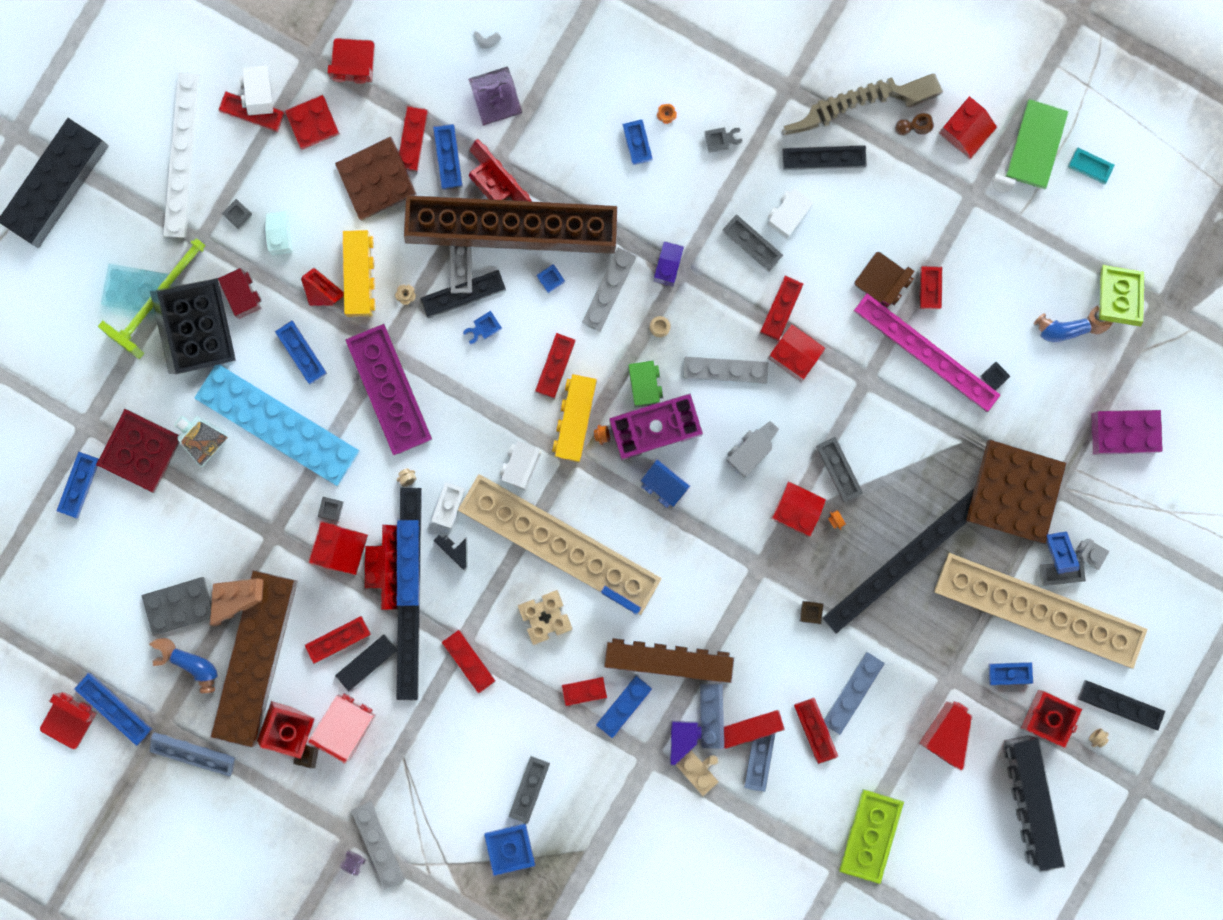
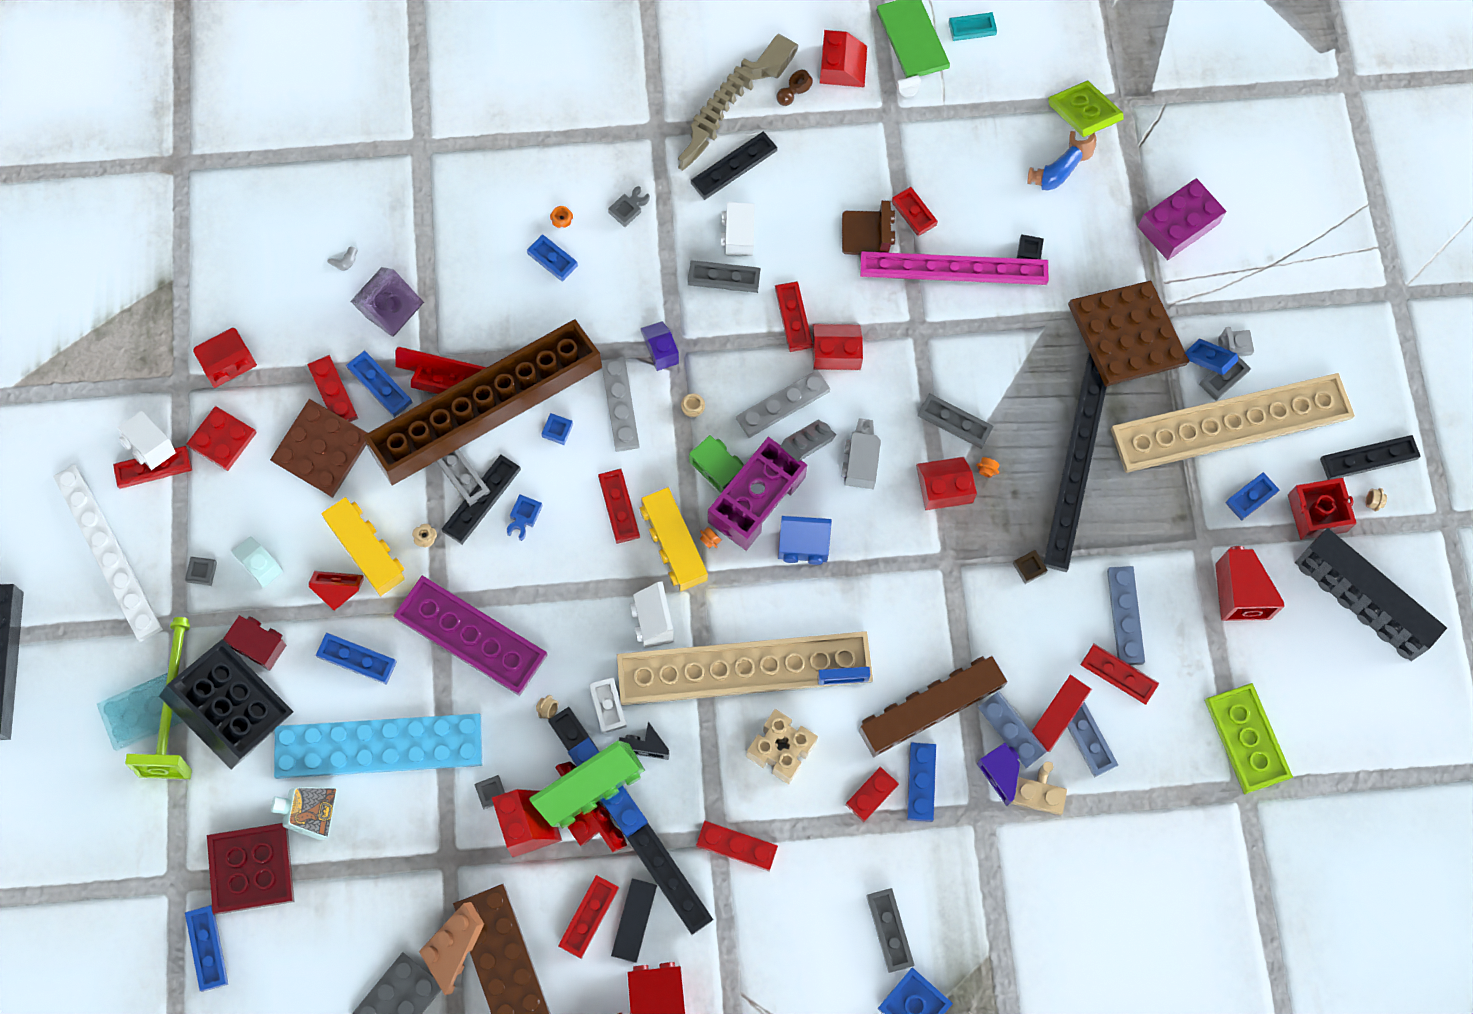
camera: 35 degrees left, 15 degrees down
(392, 556) = (588, 784): none -> bright green slope
(719, 413) = (808, 440): none -> dark grey plate

